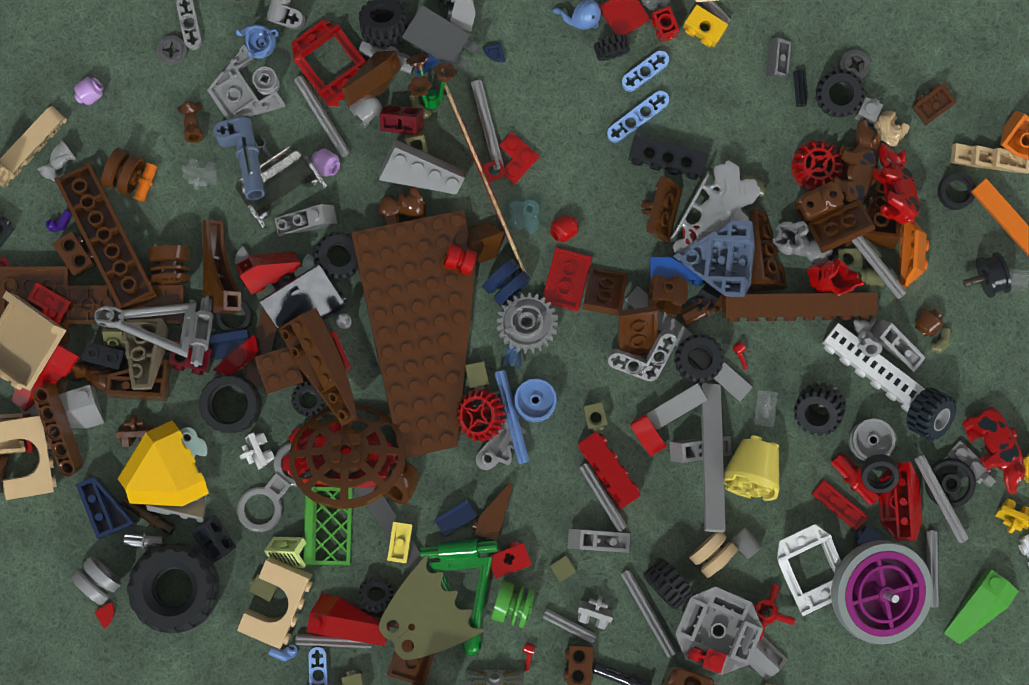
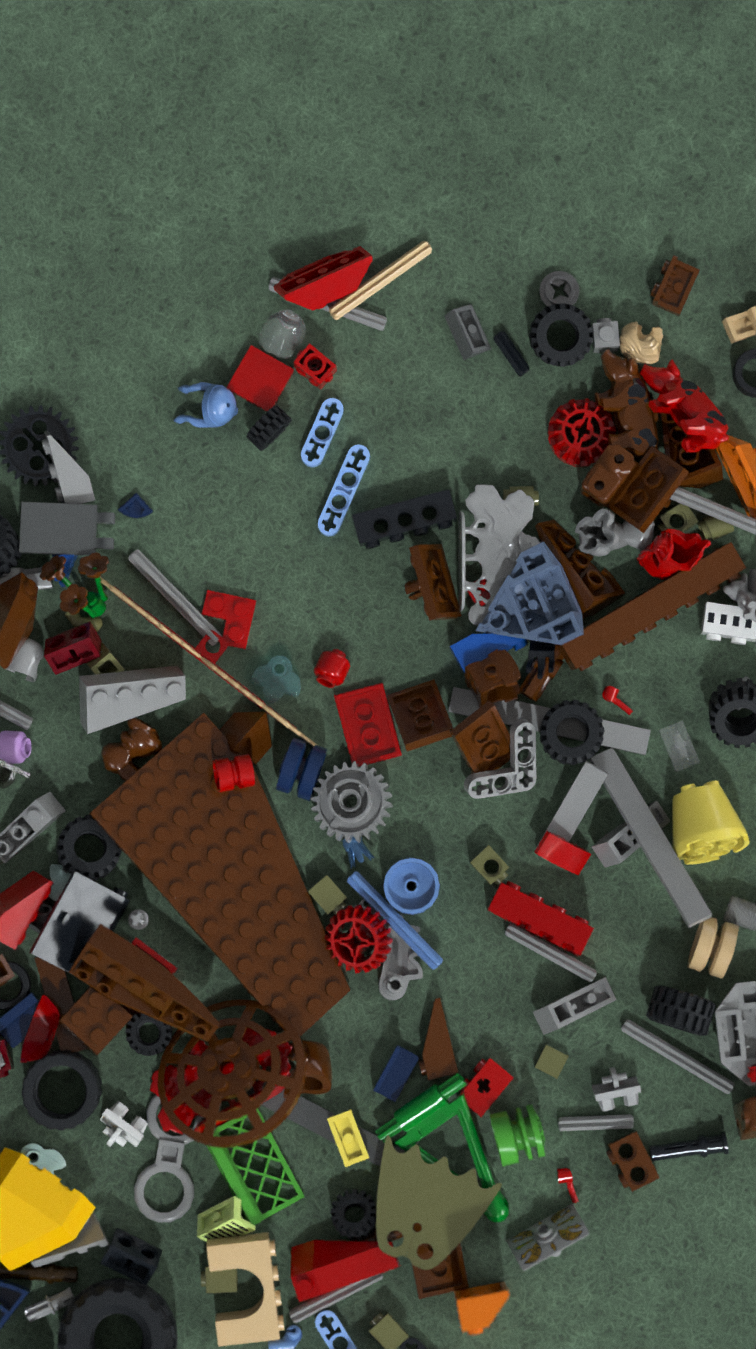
camera: 30 degrees left, 0 degrees up
(701, 16) = (350, 333): yellow brick -> none

